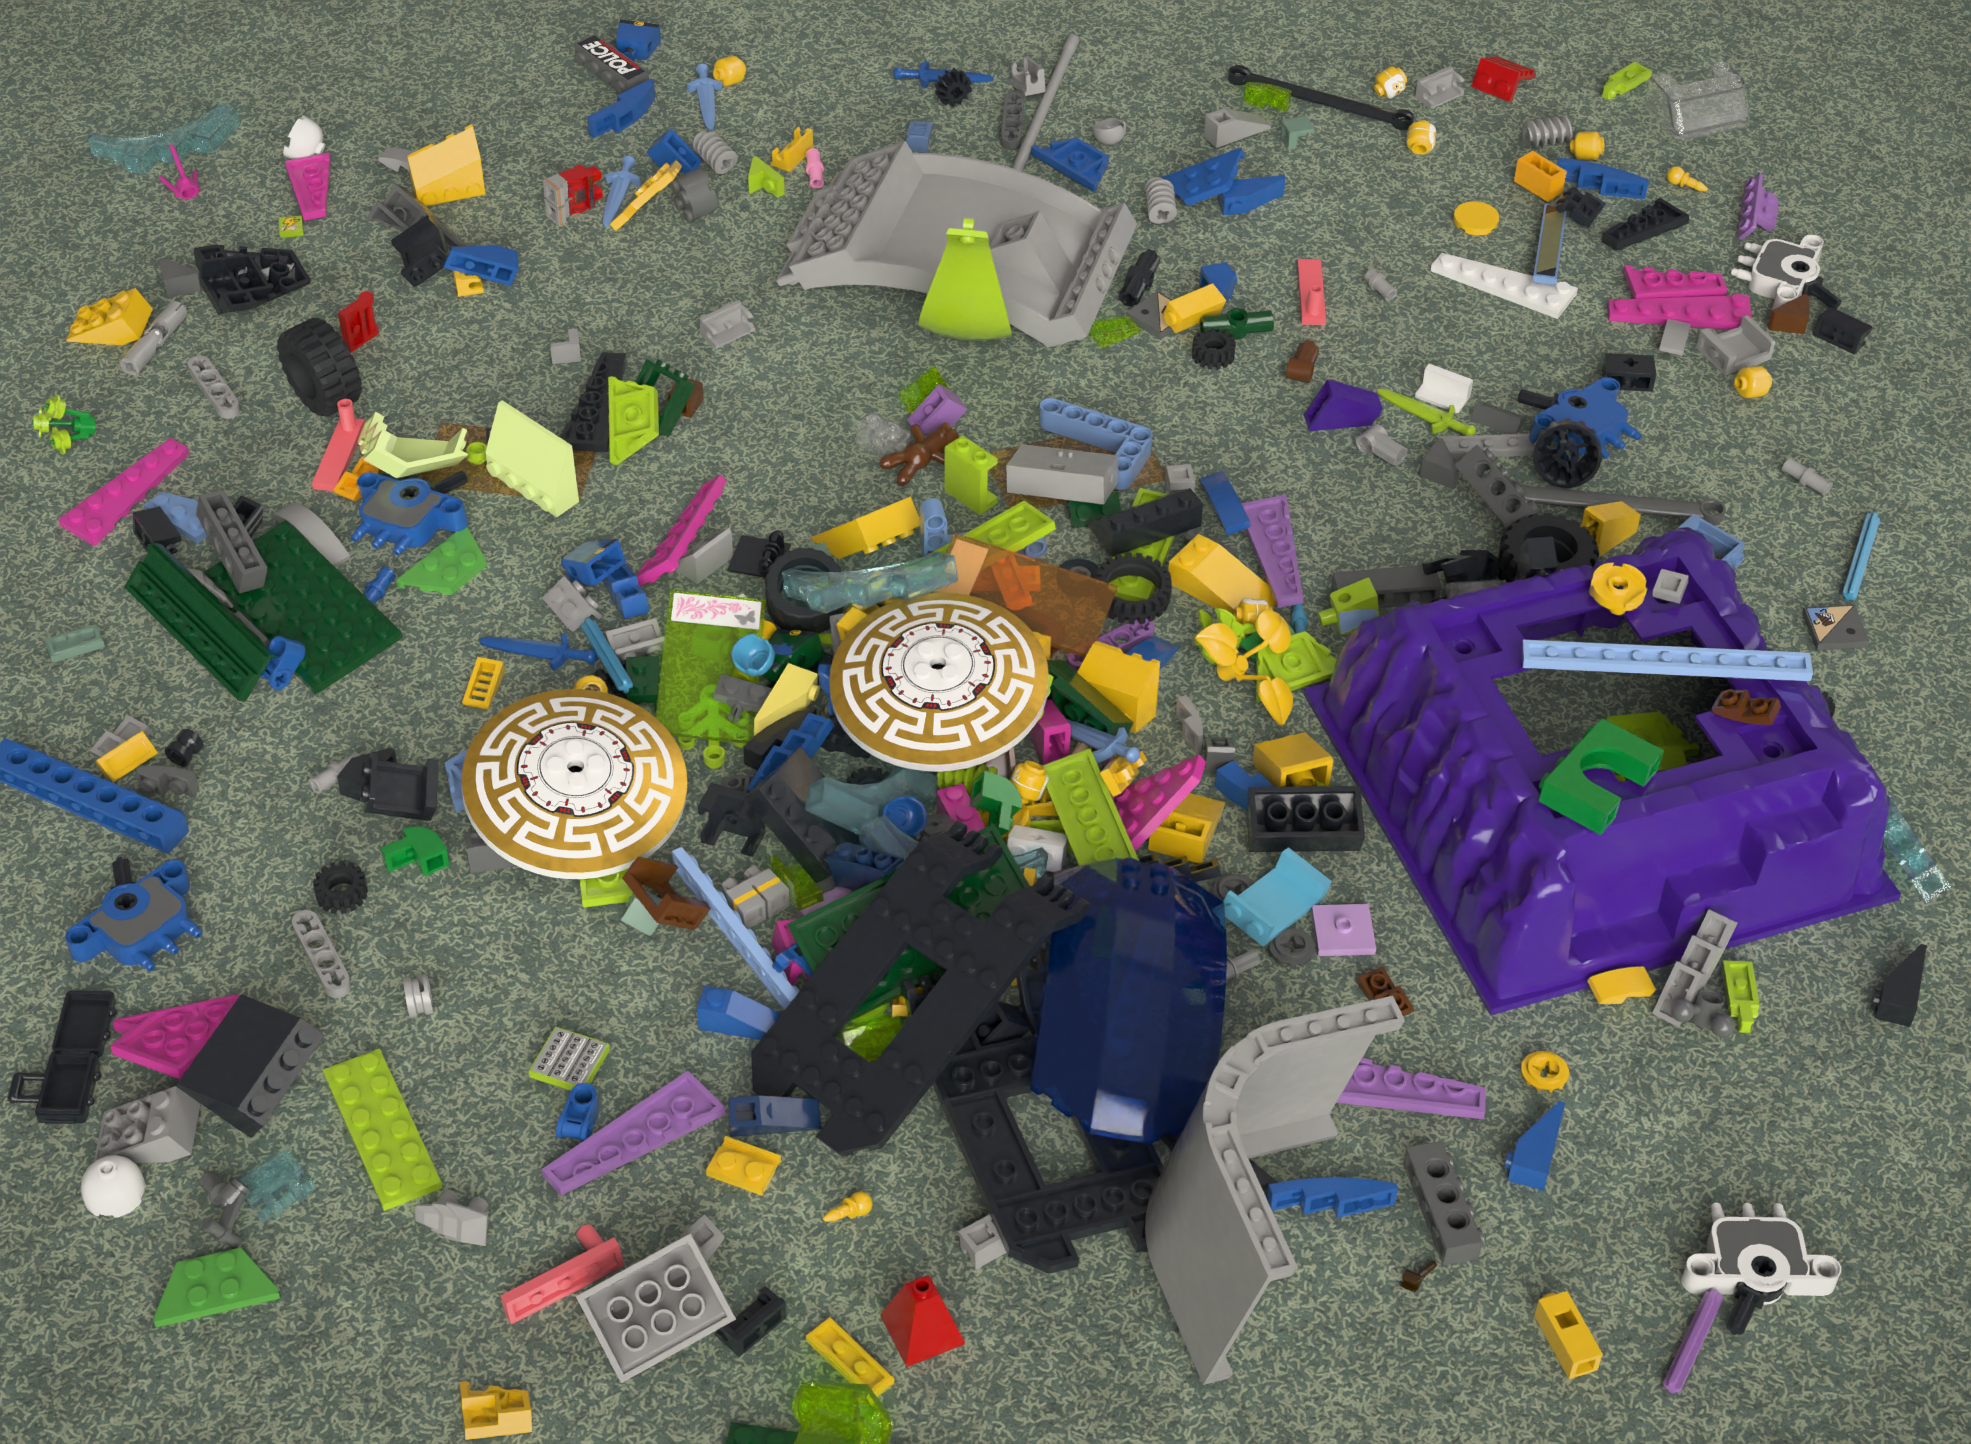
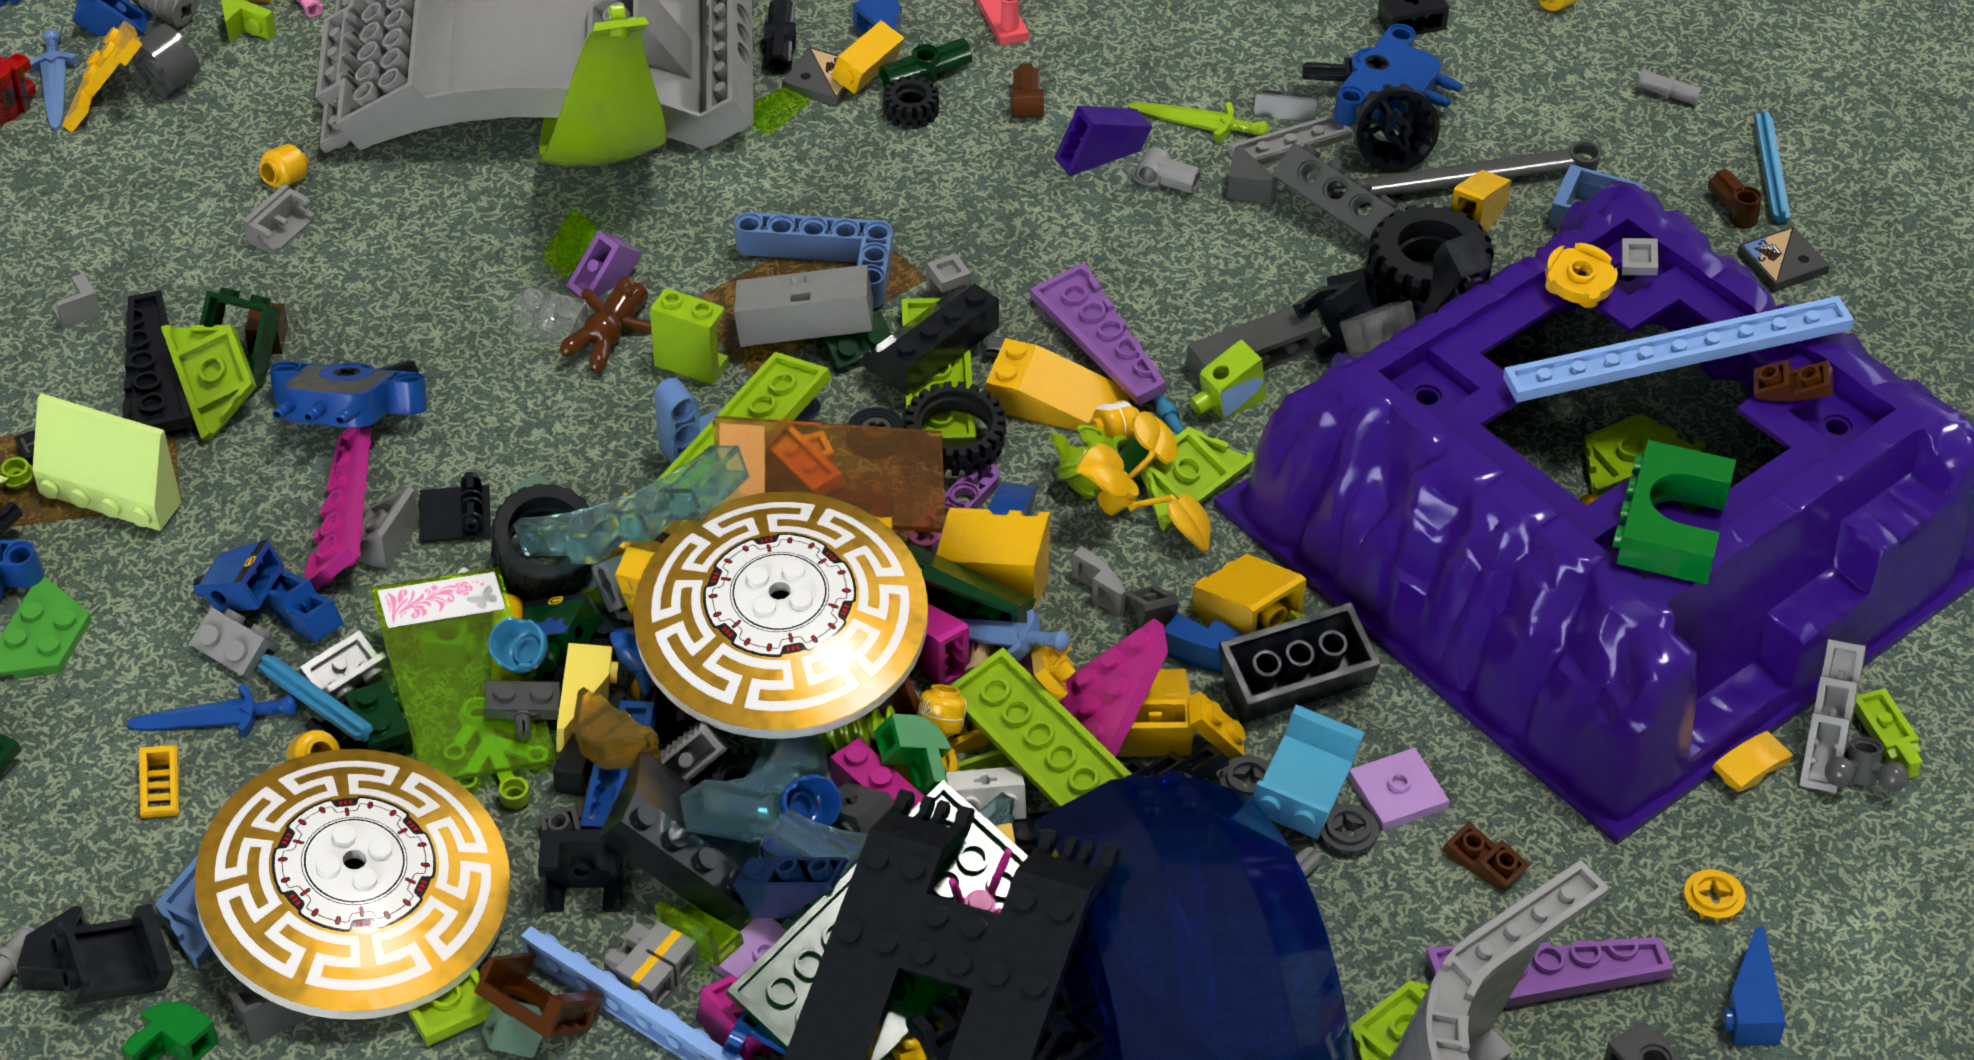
camera: 20 degrees left, 0 degrees up
(717, 454) = (346, 392): none -> blue piece
(746, 288) = (283, 166): none -> yellow head
(786, 731) = (610, 735): none -> clear yellow slope
(842, 760) = (694, 750): none -> light grey brick
(871, 529) = (588, 439): yellow wedge -> none
(984, 912) = (981, 898): none -> dark pink plant
(1224, 846) = (1216, 725): none -> yellow plate
(1225, 502) = (1015, 290): blue slope -> none
(1444, 388) = (1208, 83): white panel -> none
(1819, 572) = (1740, 200): none -> reddish brown piece

